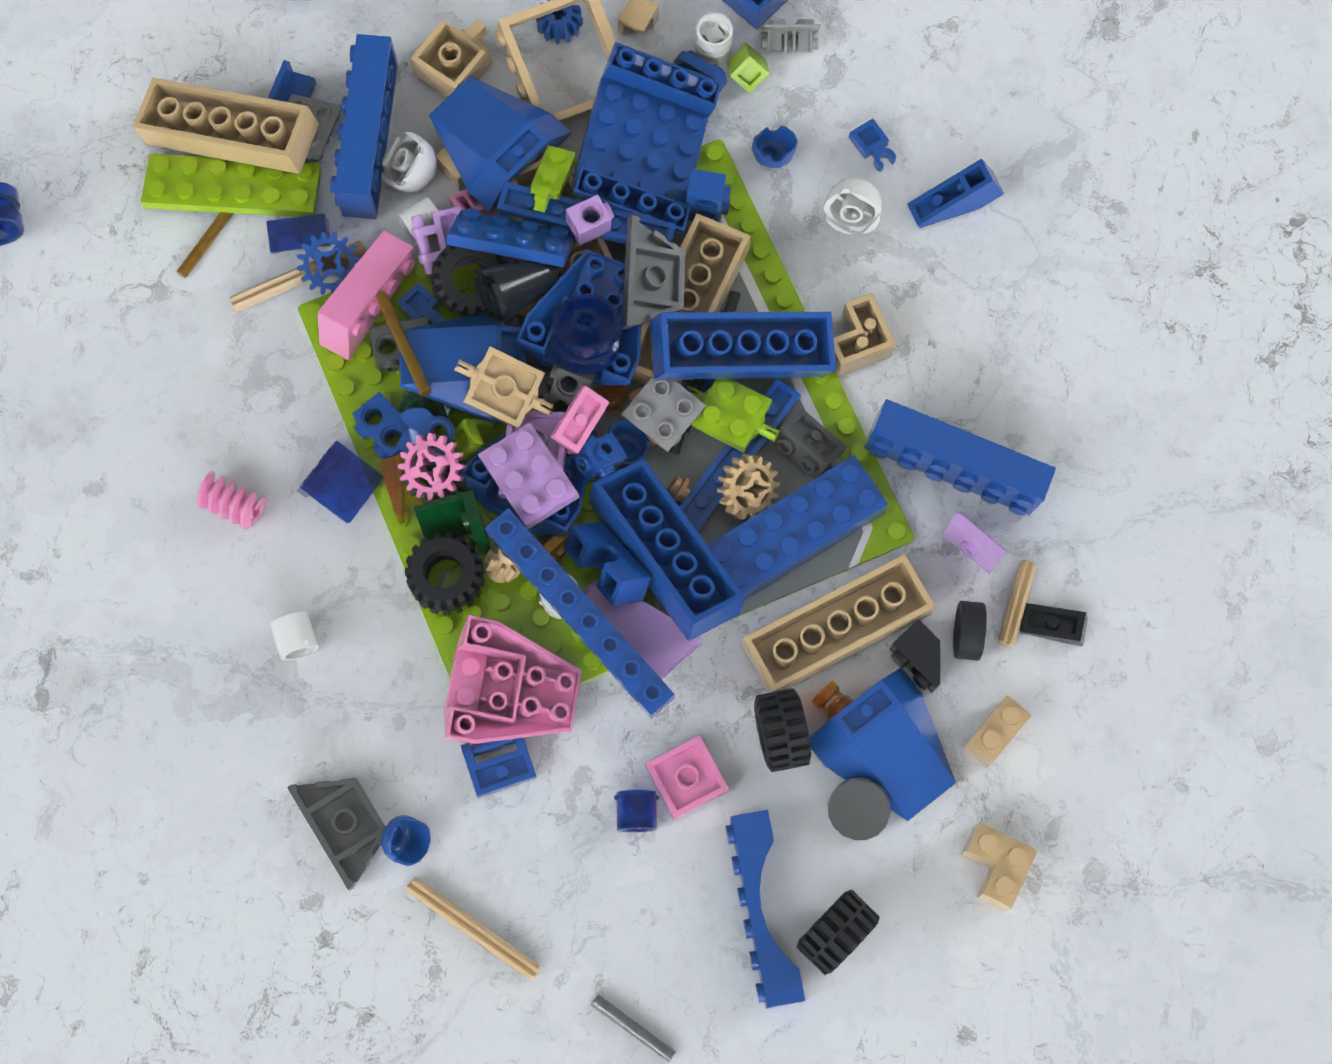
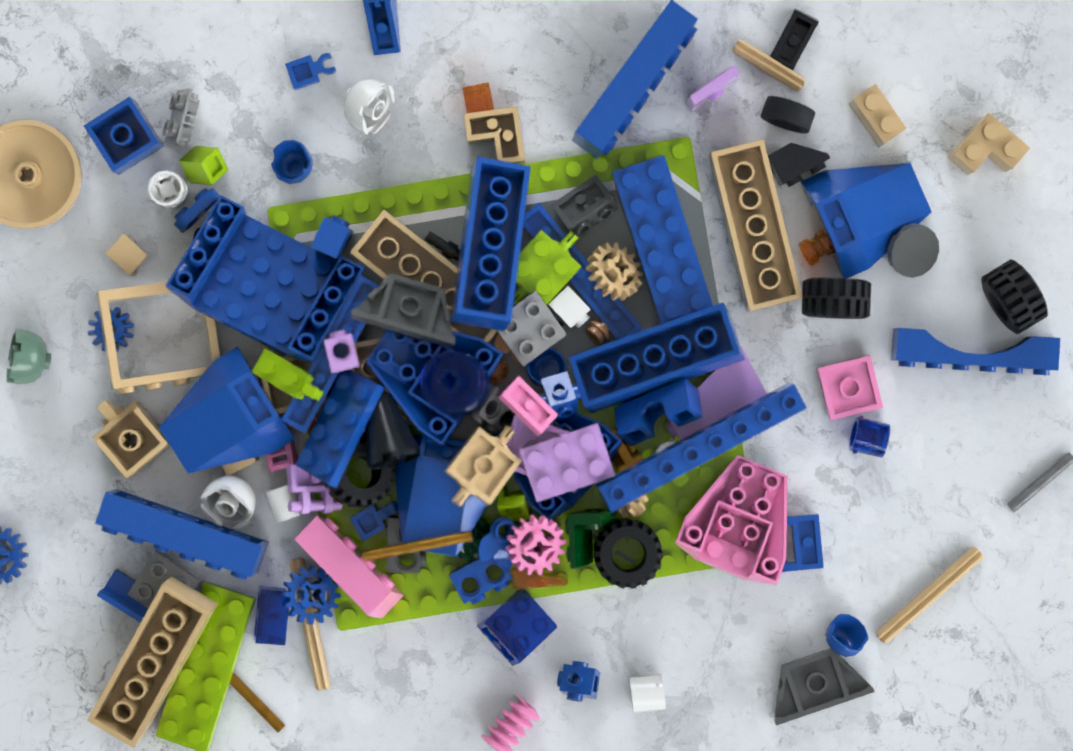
camera: 70 degrees left, 15 degrees up
(292, 559) = (587, 682): none -> blue brick
(697, 453) = (570, 308): none -> white brick
(896, 311) = (478, 98): none -> clear orange panel

